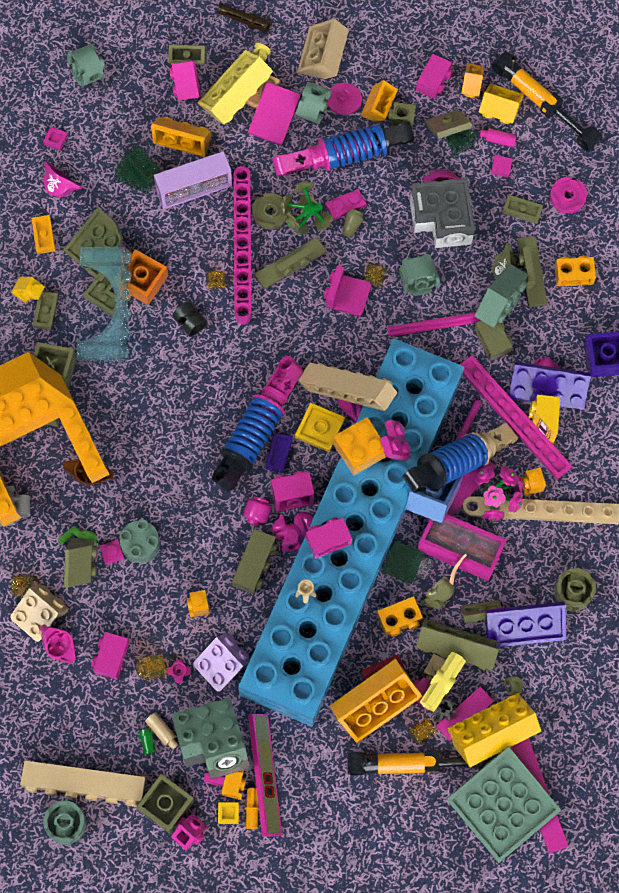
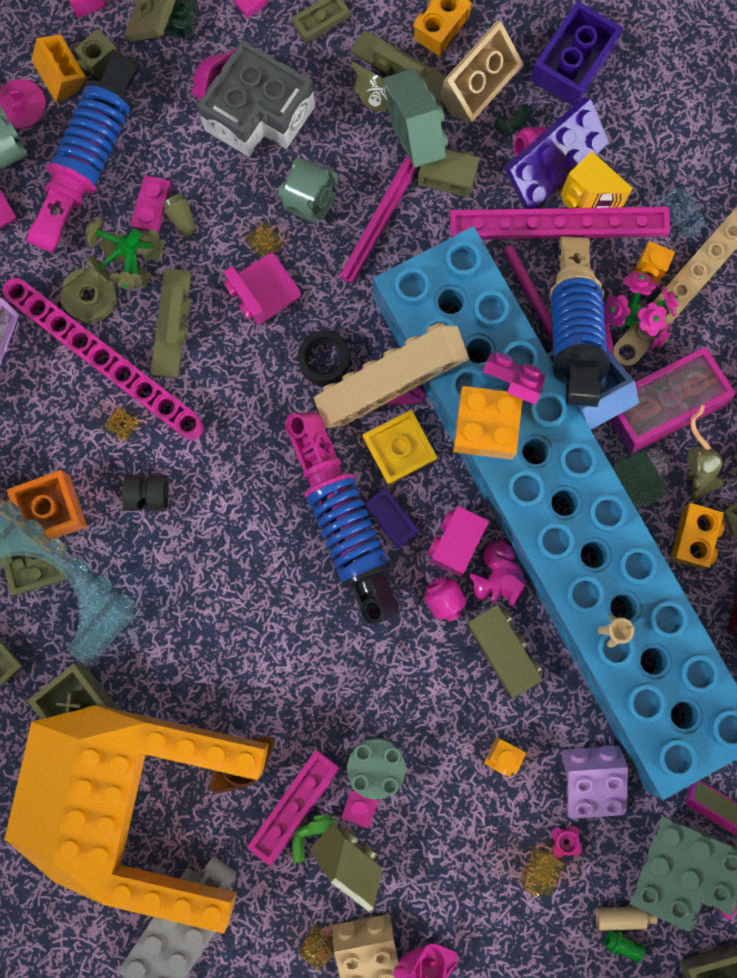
camera: 45 degrees left, 10 degrees up
(86, 517) = (293, 807): none -> dark pink plate
(110, 656) = (489, 911): dark pink brick -> none
(328, 537) = (571, 551): dark pink brick -> none
(340, 339) = (324, 337): none -> black tyre
(551, 352) = (517, 122): none -> arm
(558, 311) = (480, 74): none -> tan slope
(573, 476) = (688, 210): none -> clear light blue beam

